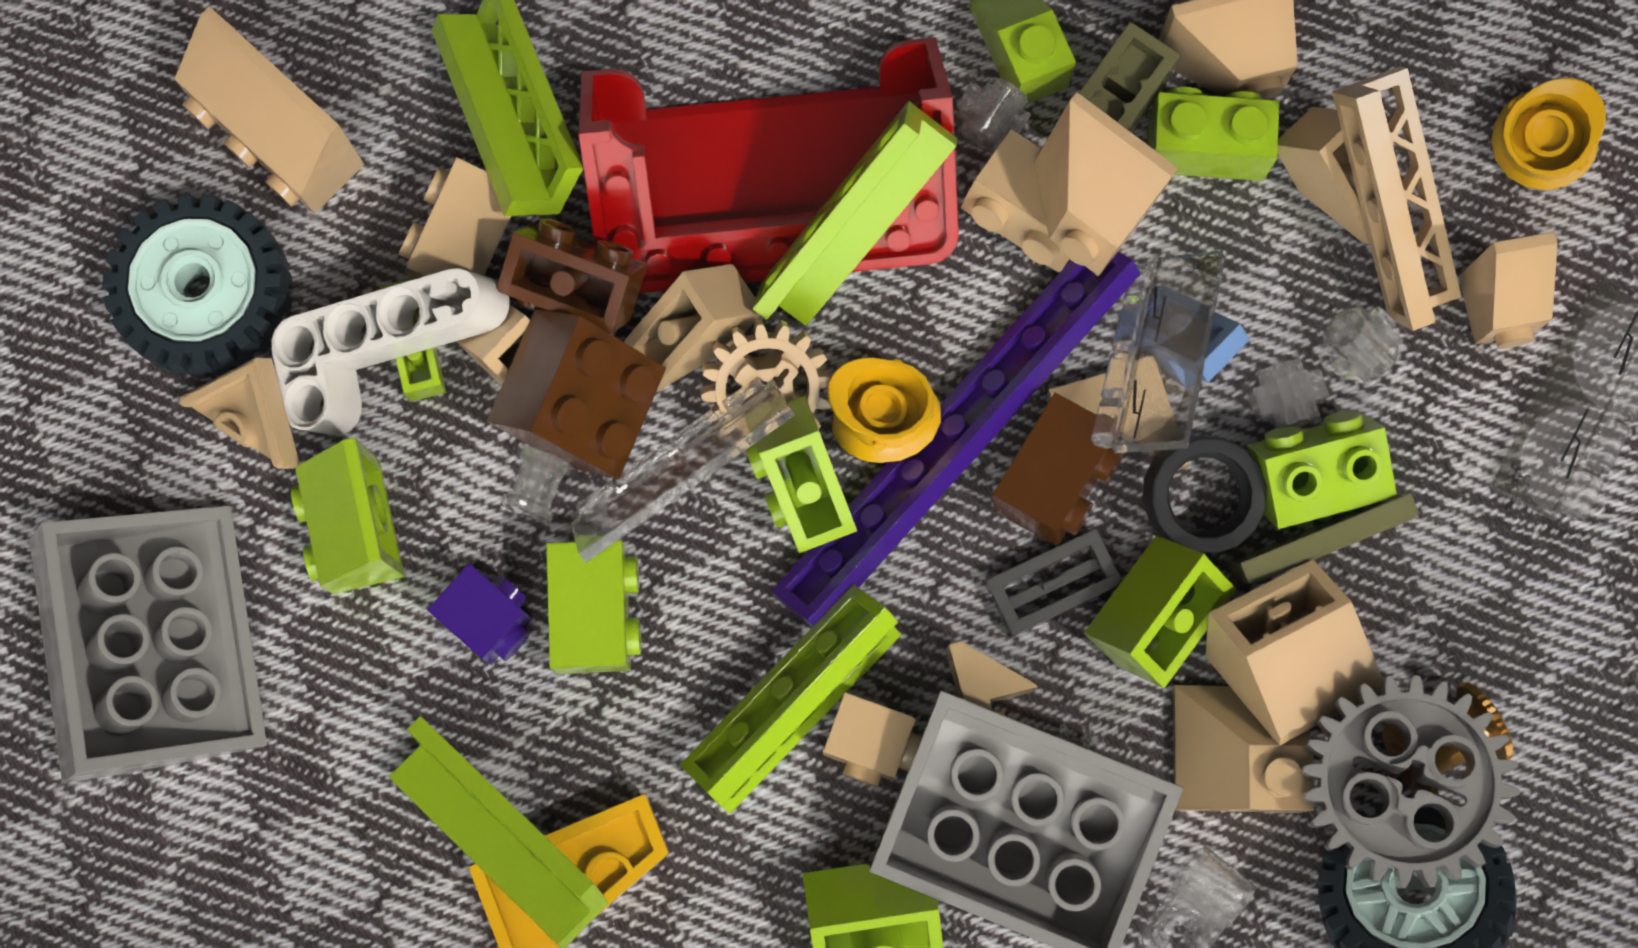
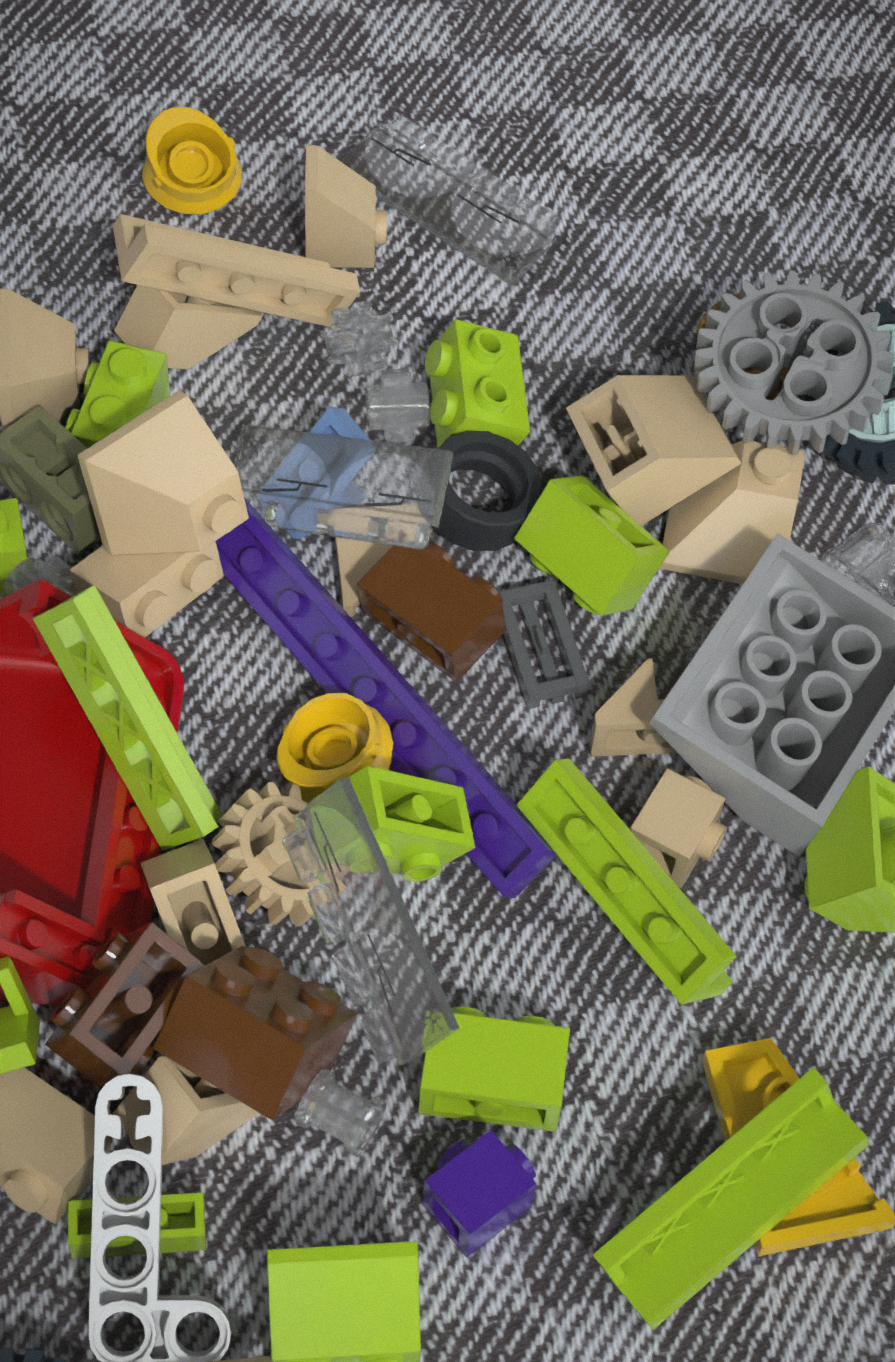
camera: 85 degrees left, 20 degrees down
(1321, 539) = (550, 431): olive tile -> none

